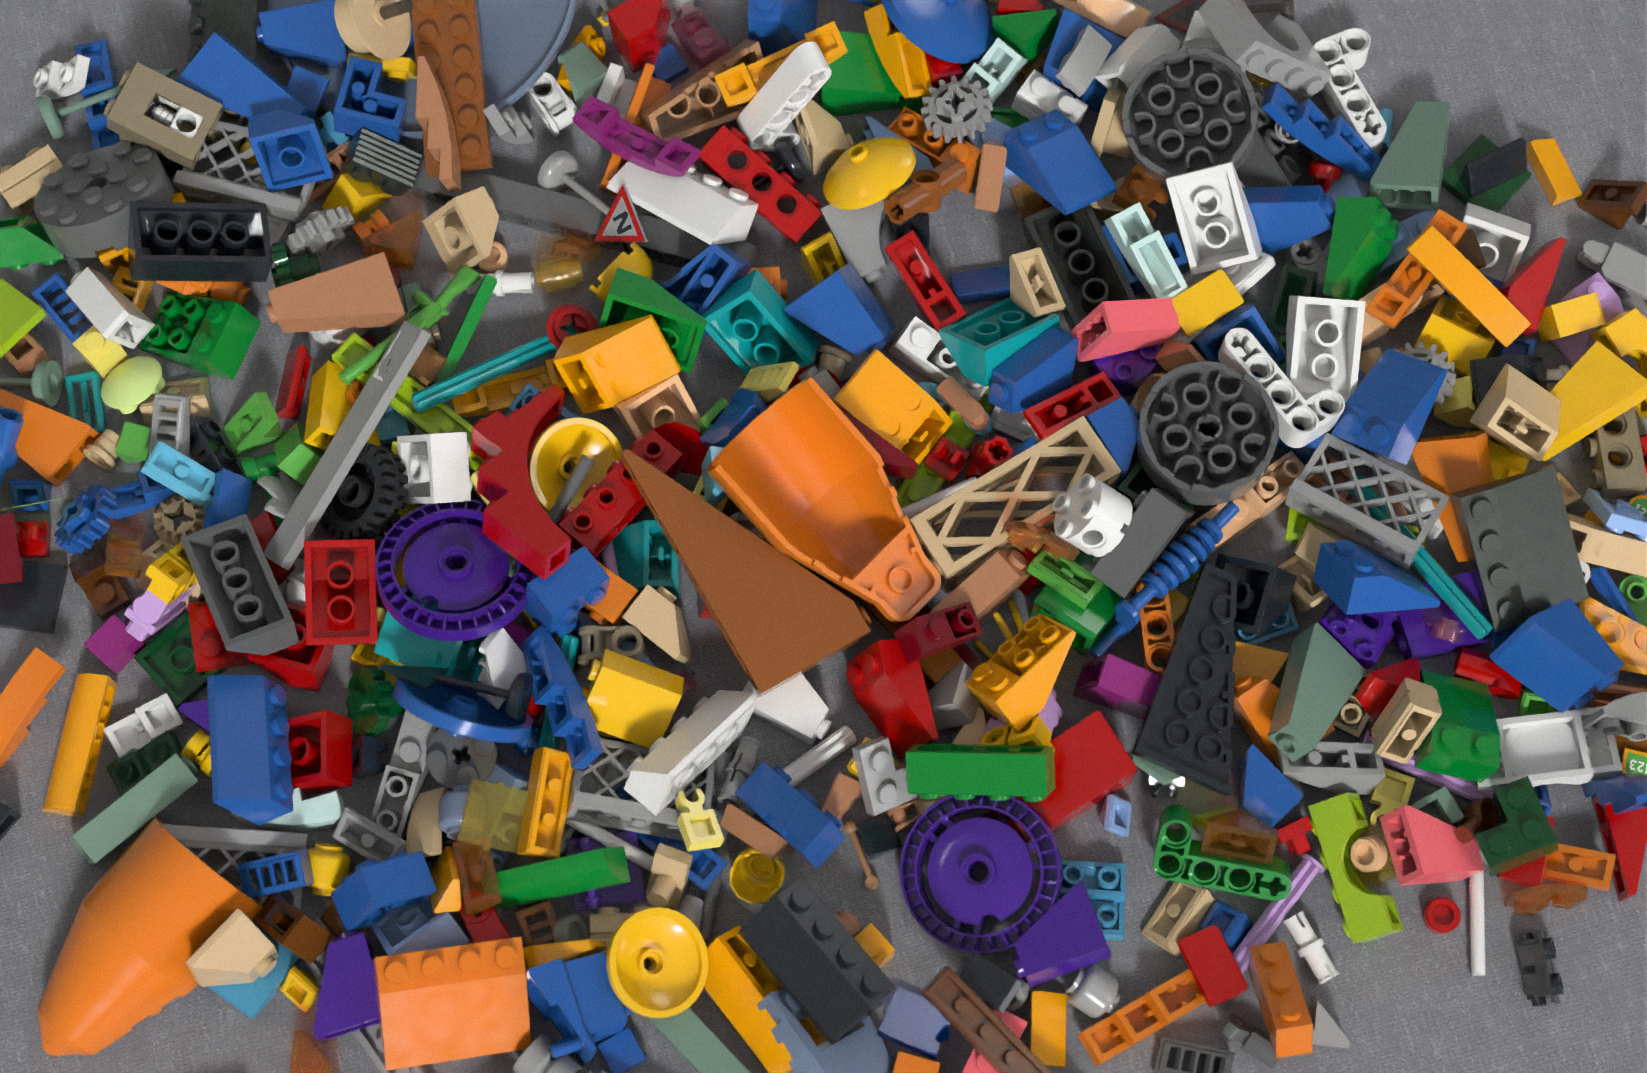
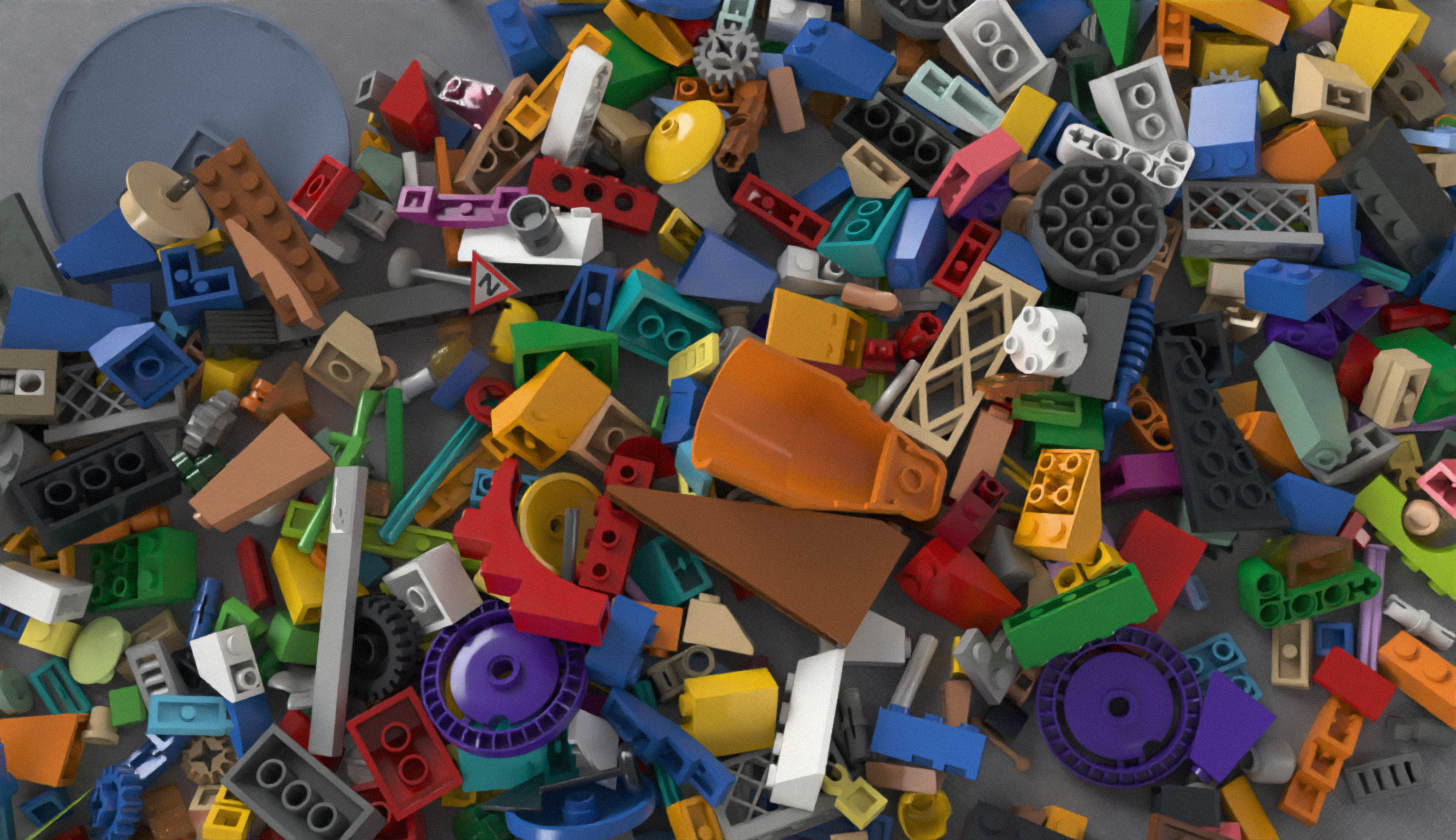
camera: 30 degrees left, 0 degrees up
(234, 395) = (205, 610): none -> blue pin
(234, 445) = (228, 663): none -> white slope
(520, 71) = (326, 193): none -> red slope
(555, 296) = (461, 378): none -> blue slope
(686, 188) = (535, 224): none -> dark grey wheel
(1433, 557) = (1337, 224): none -> blue slope

